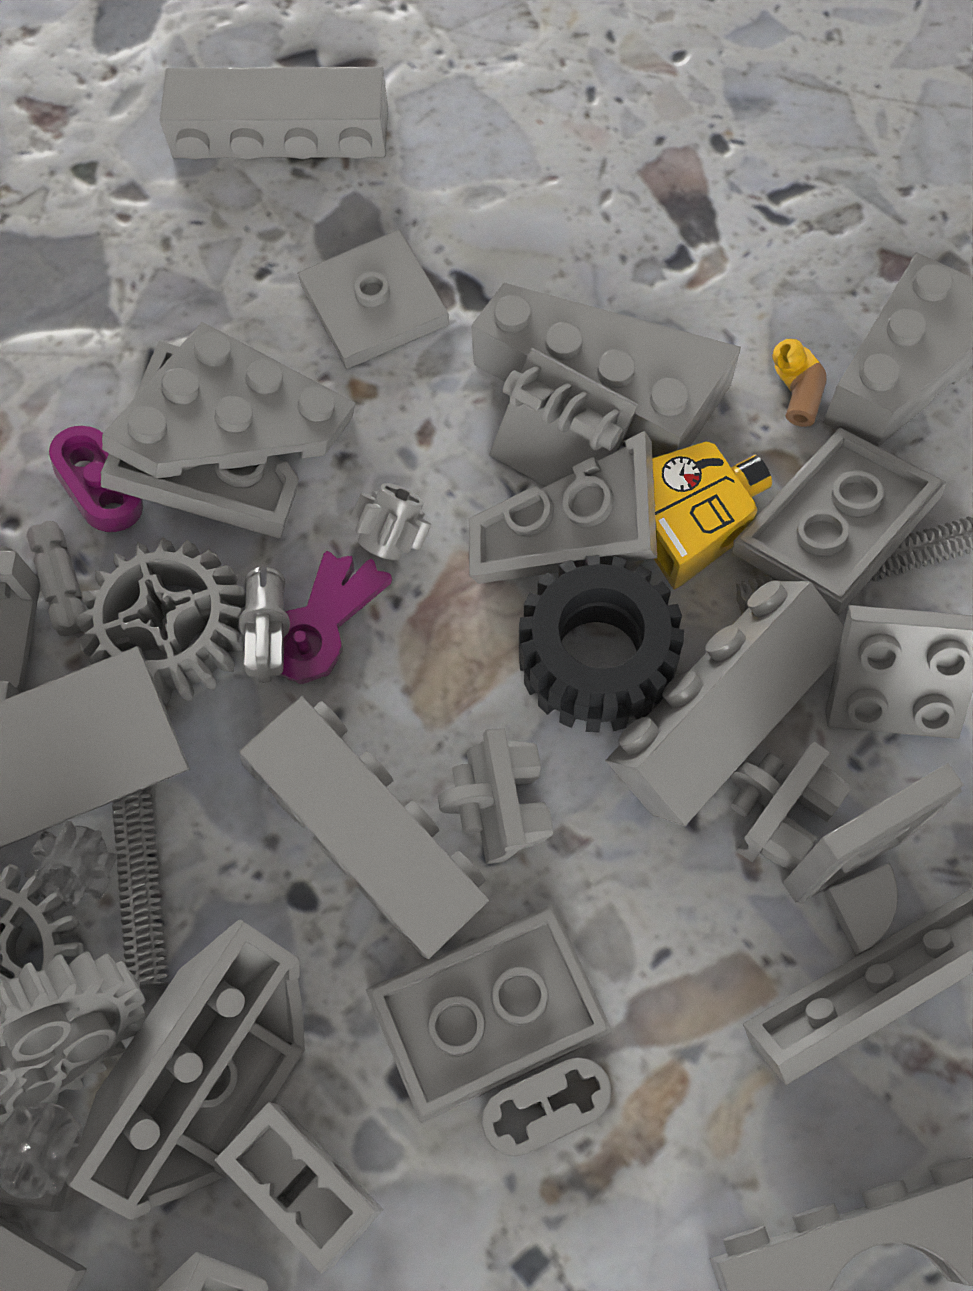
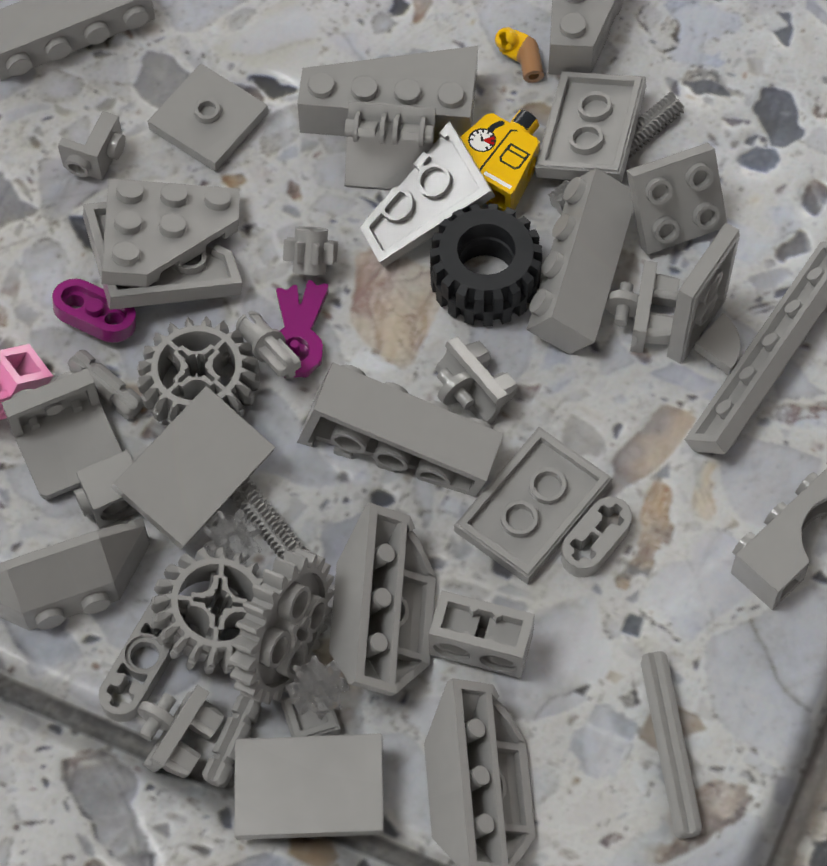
camera: 30 degrees left, 5 degrees down
(219, 282) = (99, 150): none -> light grey bracket

